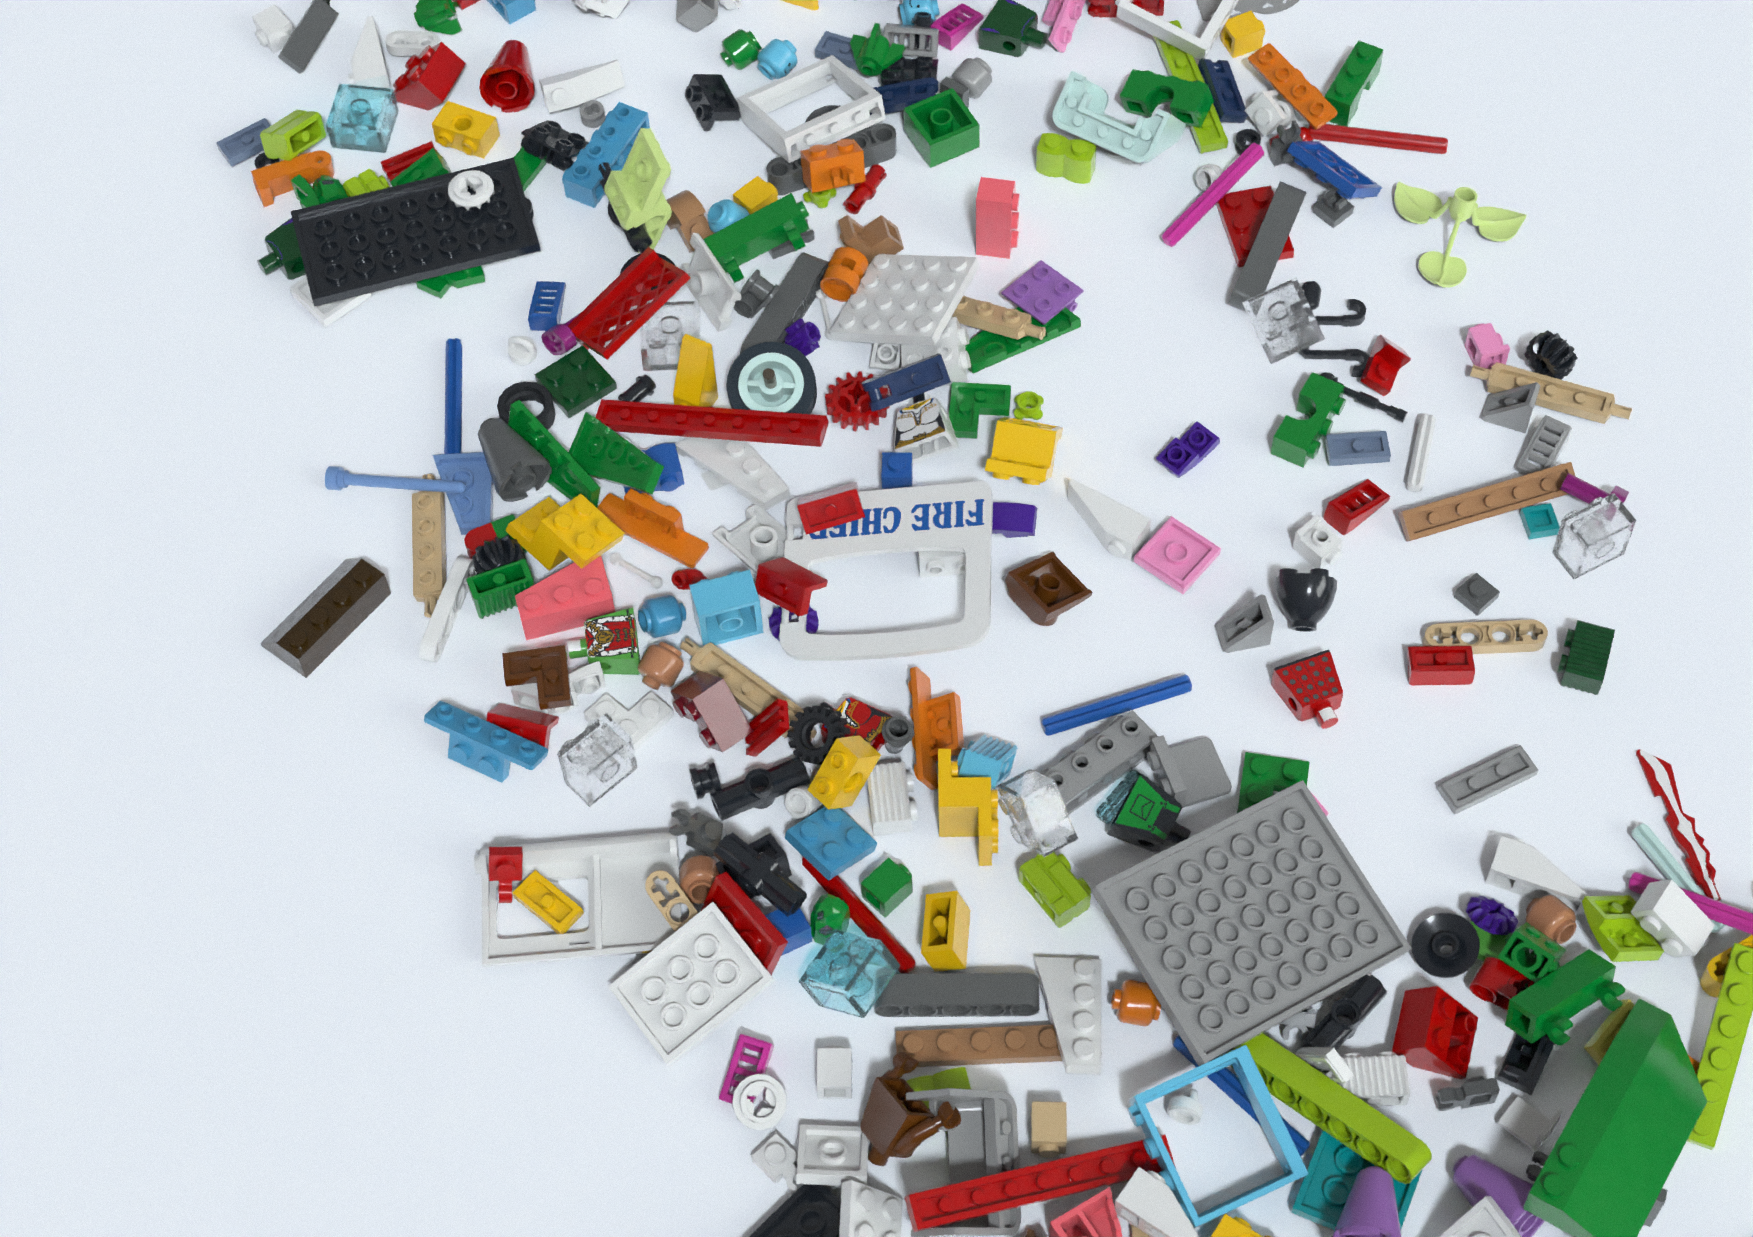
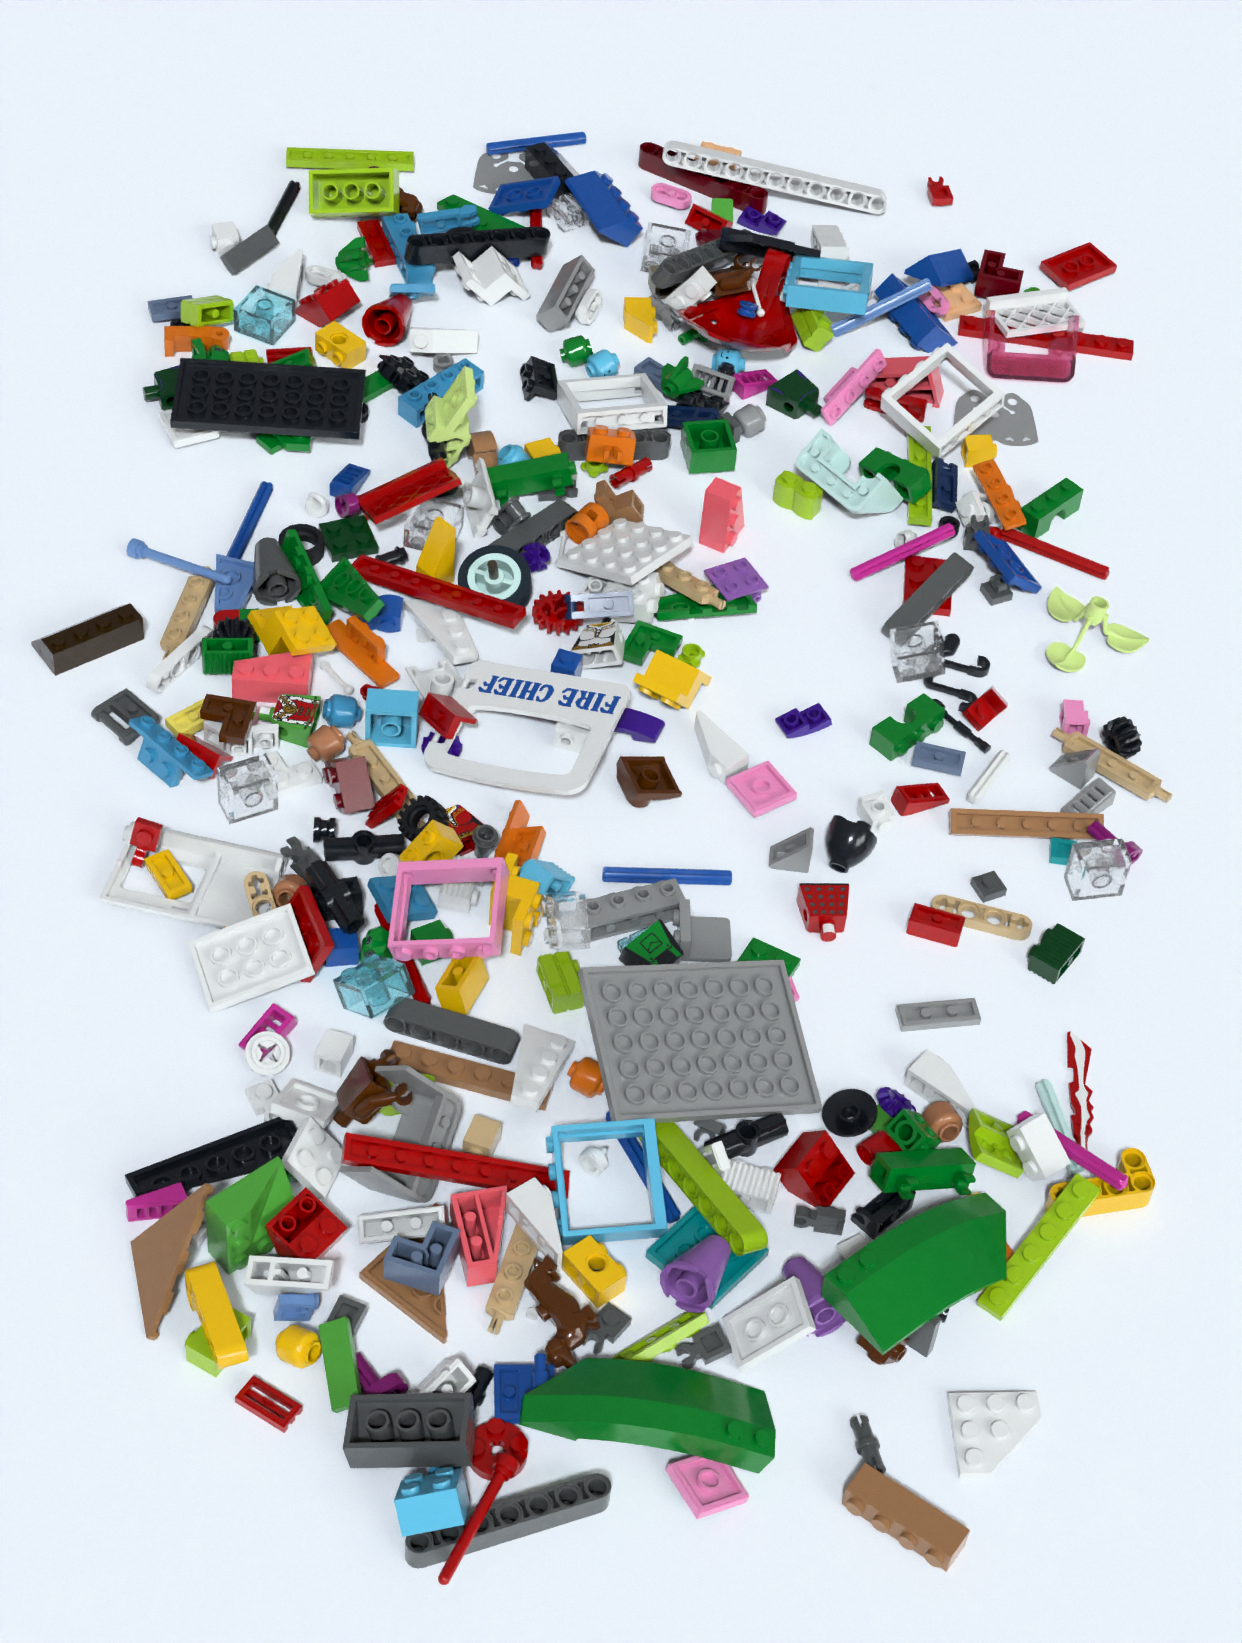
camera: 10 degrees right, 10 degrees down
(413, 696) = (126, 707): none -> dark grey plate
(478, 182) = (331, 377): white gear -> none
(488, 687) = (186, 720): none -> light yellow plate
(520, 31) = (412, 291): none -> dark azure plate
(830, 508) = (501, 672): red panel -> none
(885, 799) = (441, 872): none -> bright pink window

